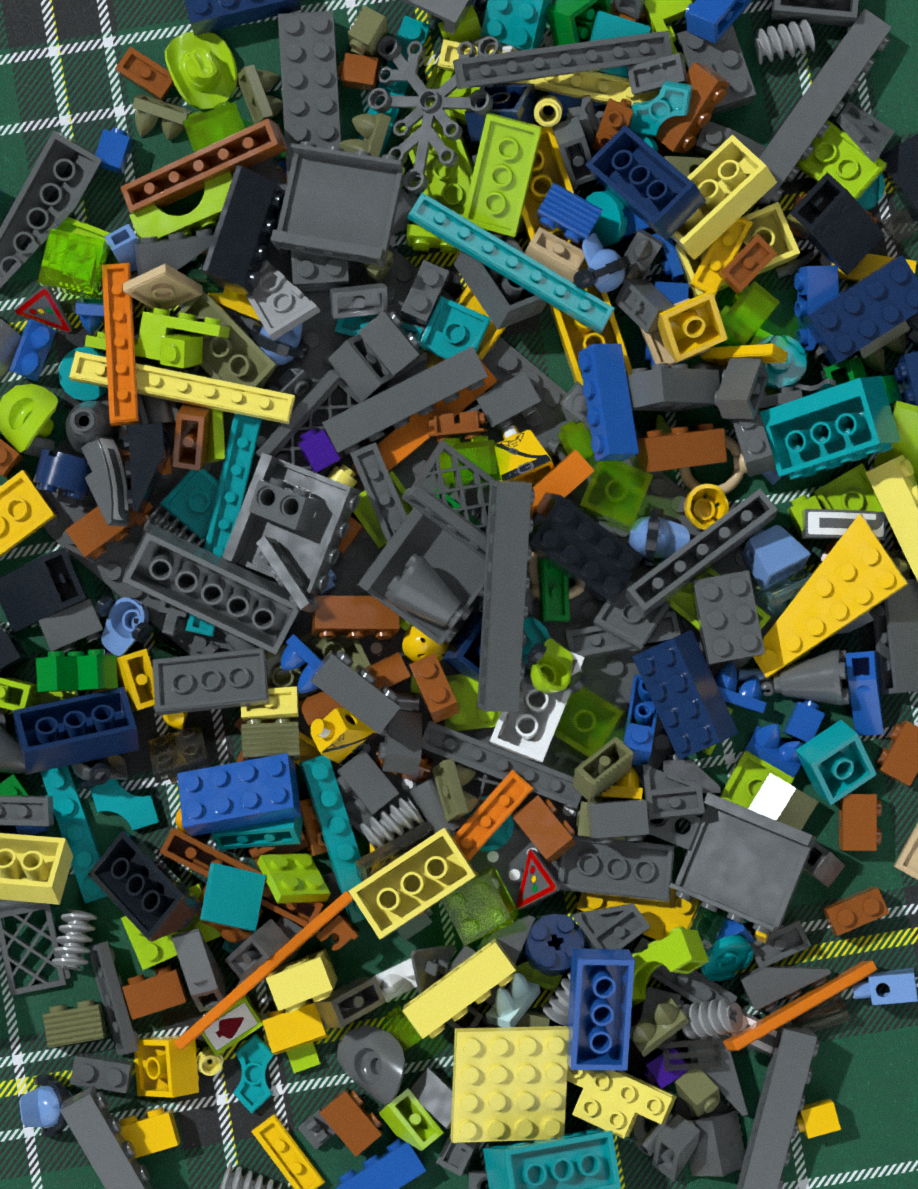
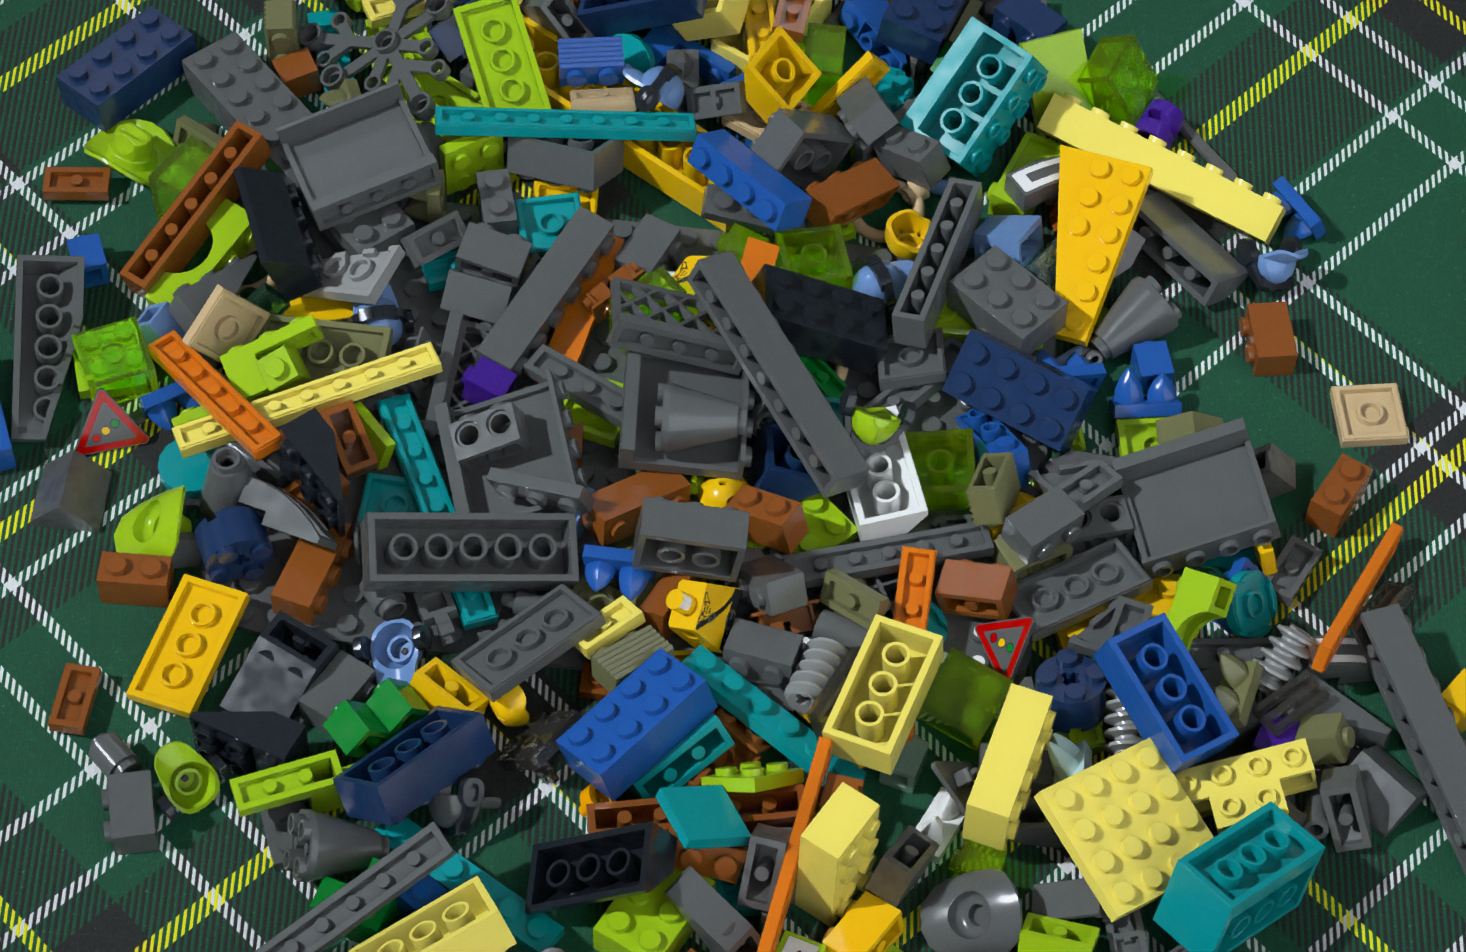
camera: 35 degrees left, 30 degrees down
(32, 350) = (120, 470): blue tile -> none
(137, 810) = (499, 836): teal tile -> none
(150, 109) = (102, 209): olive tile -> none
(775, 982) = (1319, 598): dark grey slope -> none
(835, 762) = (1211, 371): teal brick -> none
(859, 822) = (1275, 418): dark orange brick -> none
(865, 692) = (1198, 316): blue slope -> none
(901, 985) = (1429, 536): medium blue torso -> none

